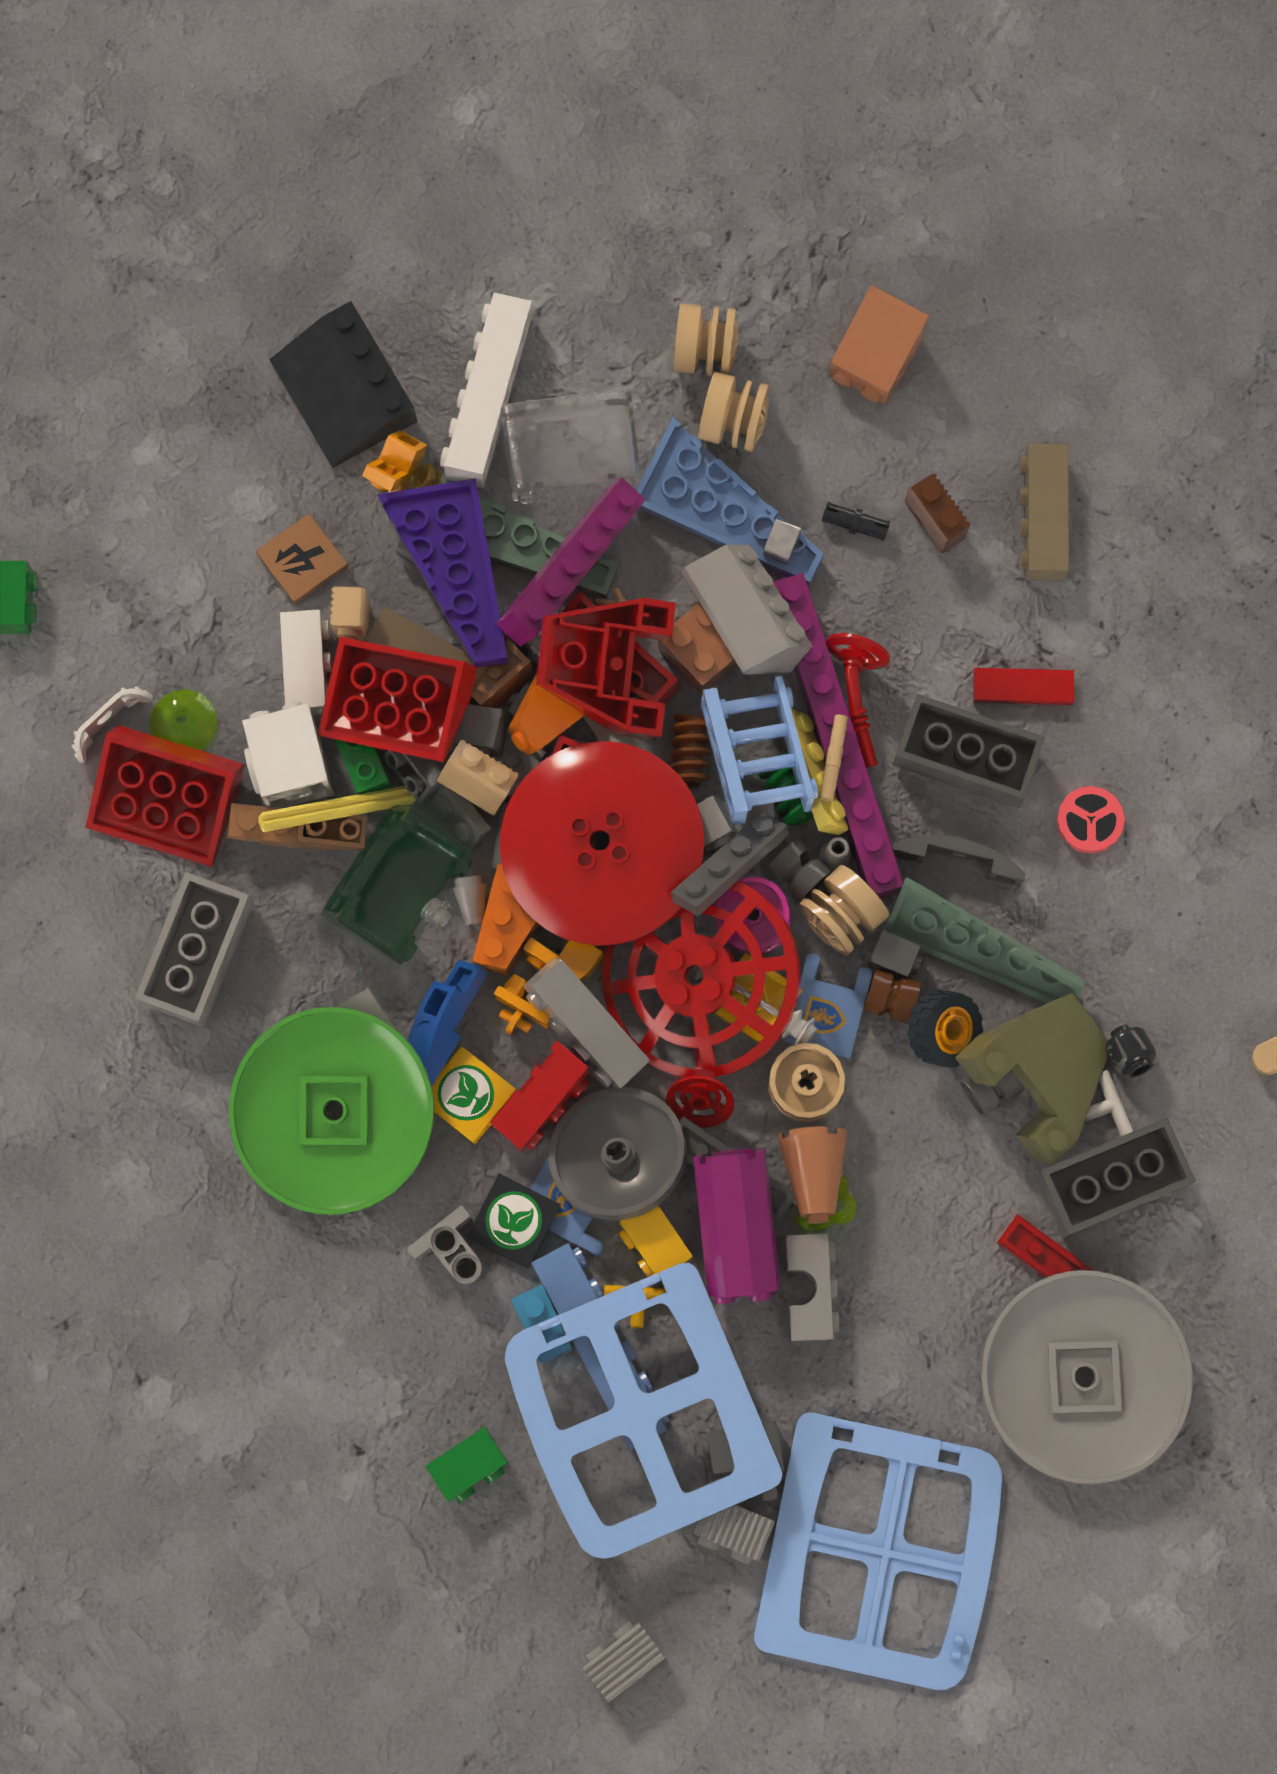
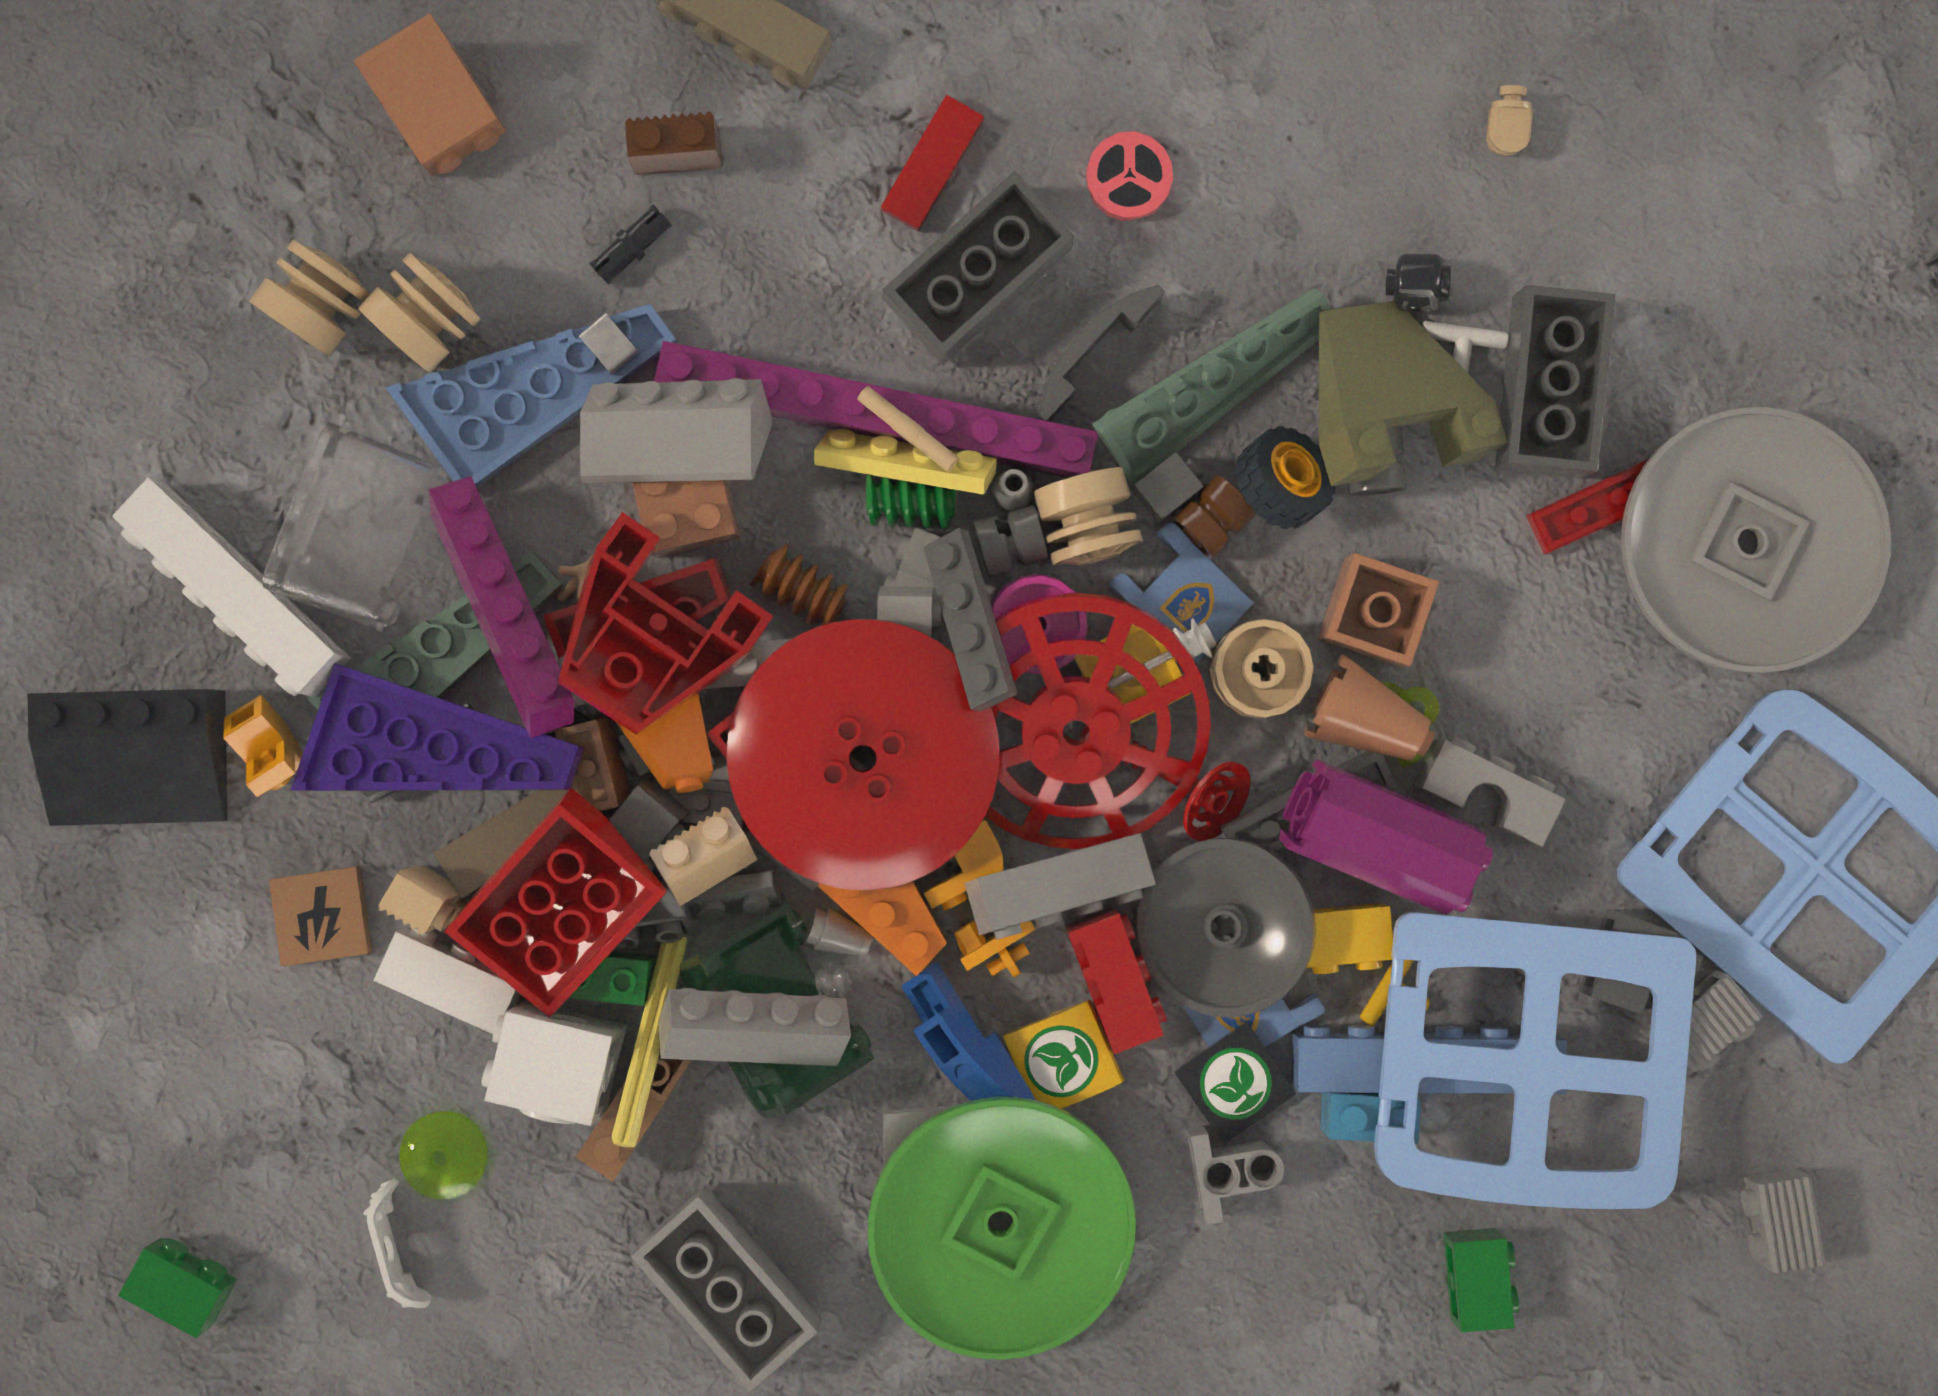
camera: 60 degrees left, 10 degrees up
(163, 794) = (518, 1226): red slope -> none
(381, 870) = (753, 1027): none -> light grey brick
(425, 476) = (299, 719): clear yellow tile -> none
(733, 771) = (861, 555): light blue fence -> none
(854, 660) = (799, 338): red dish -> none
(890, 1140) = (1378, 610): none -> nougat brick

